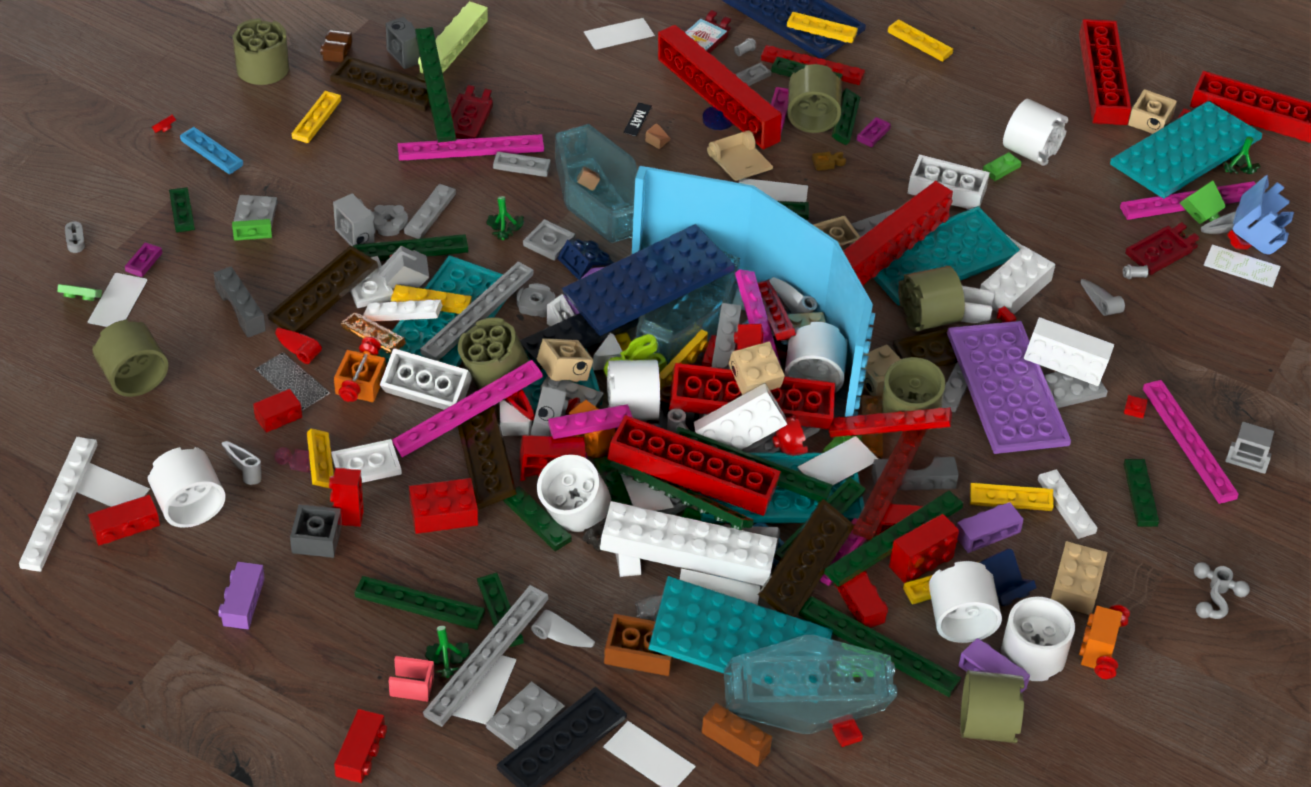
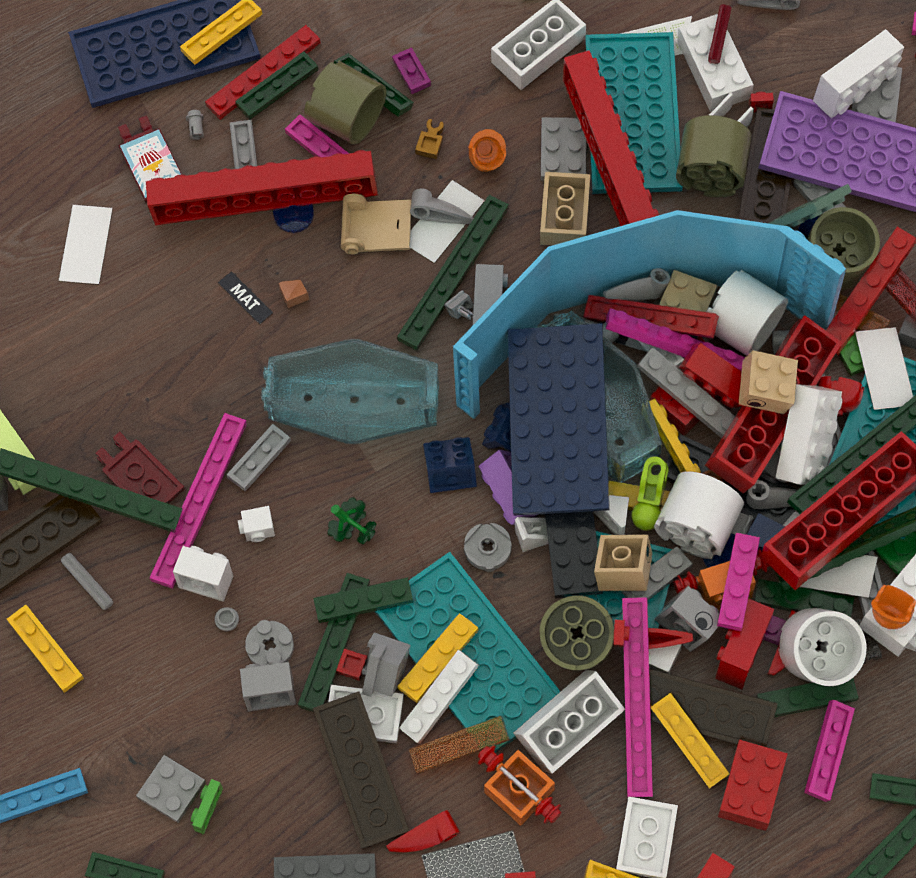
camera: 55 degrees left, 20 degrees up
(377, 119) = (87, 581): none -> light grey axle
(393, 191) = (226, 619): none -> light grey plate
(416, 162) = (203, 573): none -> white brick
(430, 211) = (279, 593): light grey plate -> none
(449, 247) = (363, 600): none -> dark green plate
(457, 451) = (690, 740): none -> yellow plate
(472, 180) = (256, 524): none -> white brick
(476, 311) = (487, 618): light grey plate -> none
(500, 542) = (829, 750): none -> dark pink plate
(502, 366) = (621, 633): none -> red plate
(548, 239) = (400, 487): light grey plate -> none
(588, 178) = (333, 399): nougat slope -> none
(622, 504) = (893, 607): none -> orange helmet
(775, 179) = (433, 209): none -> light grey piece
(839, 186) = (487, 150): none -> orange helmet
(922, 349) = (813, 208): none -> sand green plate
(1034, 264) = (719, 34): none -> dark red axle

